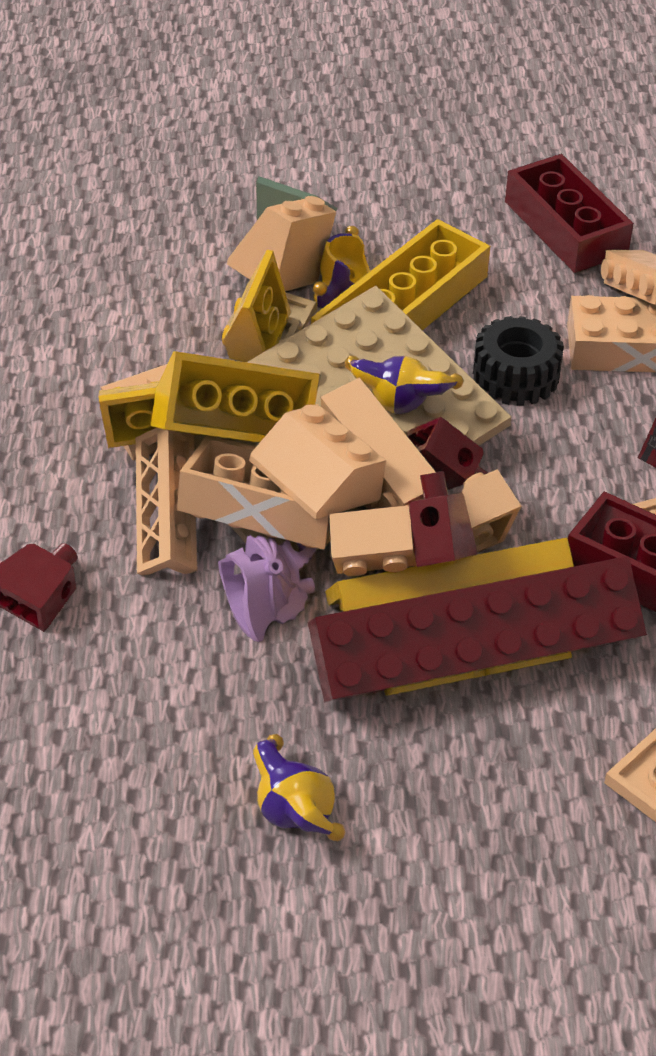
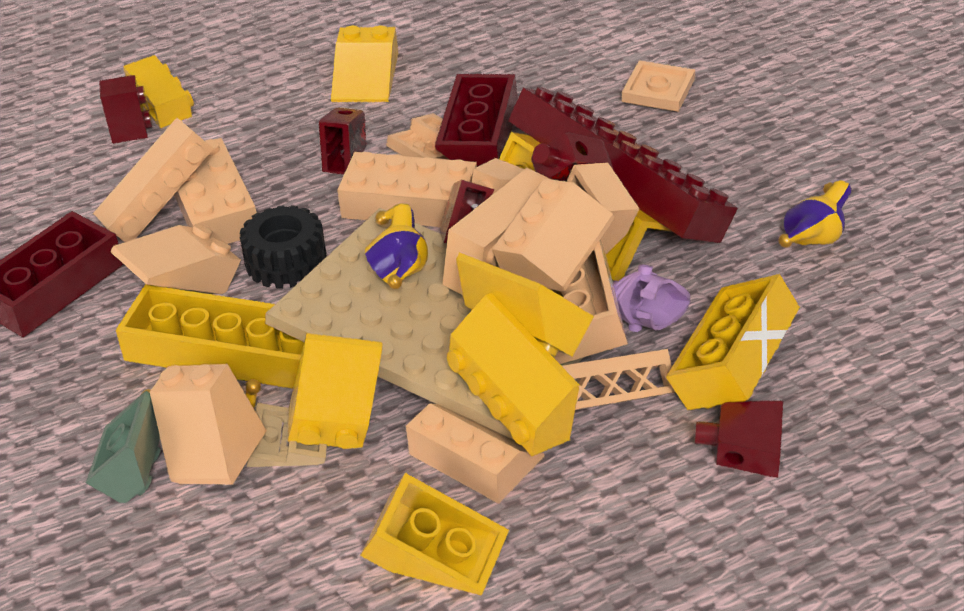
camera: 110 degrees left, 5 degrees down
(85, 353) = (434, 538): none -> yellow slope
(139, 607) = (733, 343): none -> yellow brick
(519, 272) = (180, 259): none -> light nougat slope
(565, 470) = (388, 180): none -> light nougat brick

